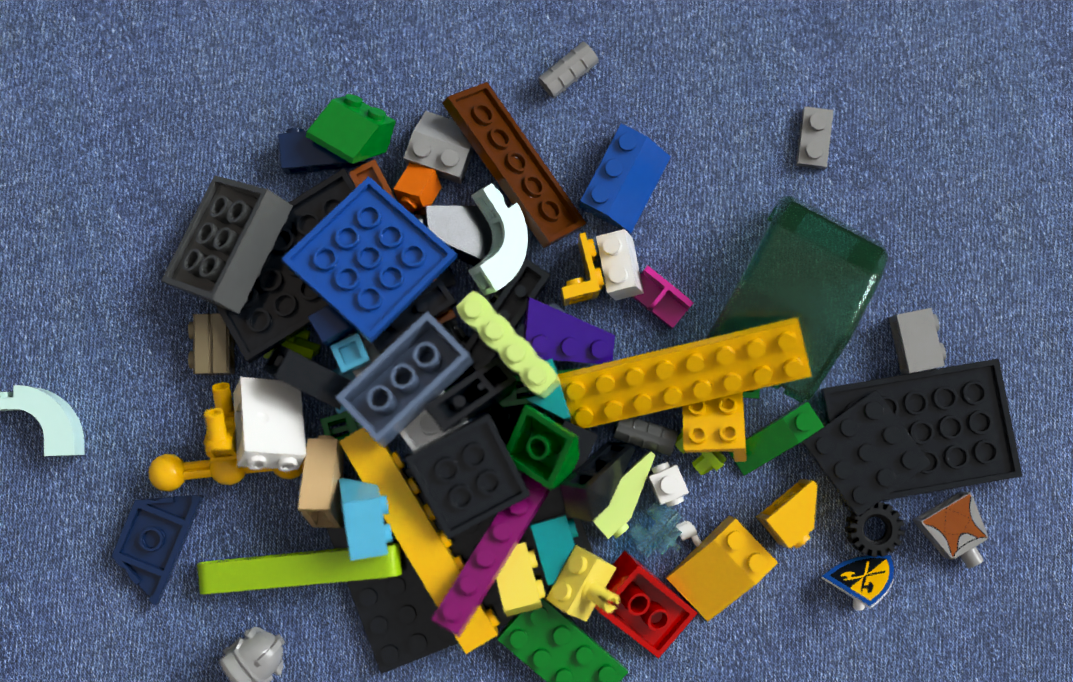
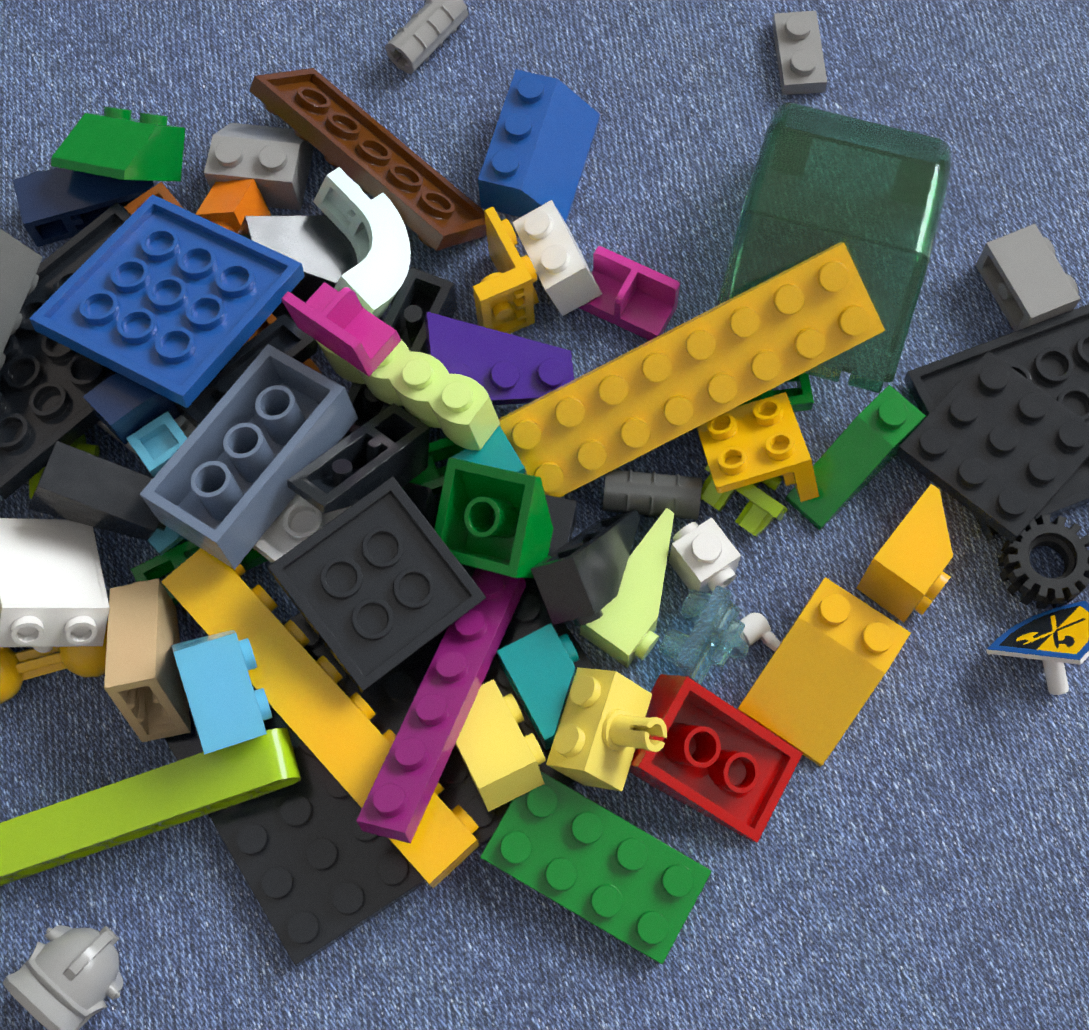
camera: 10 degrees left, 15 degrees down
(476, 313) = (344, 326): none -> dark pink panel

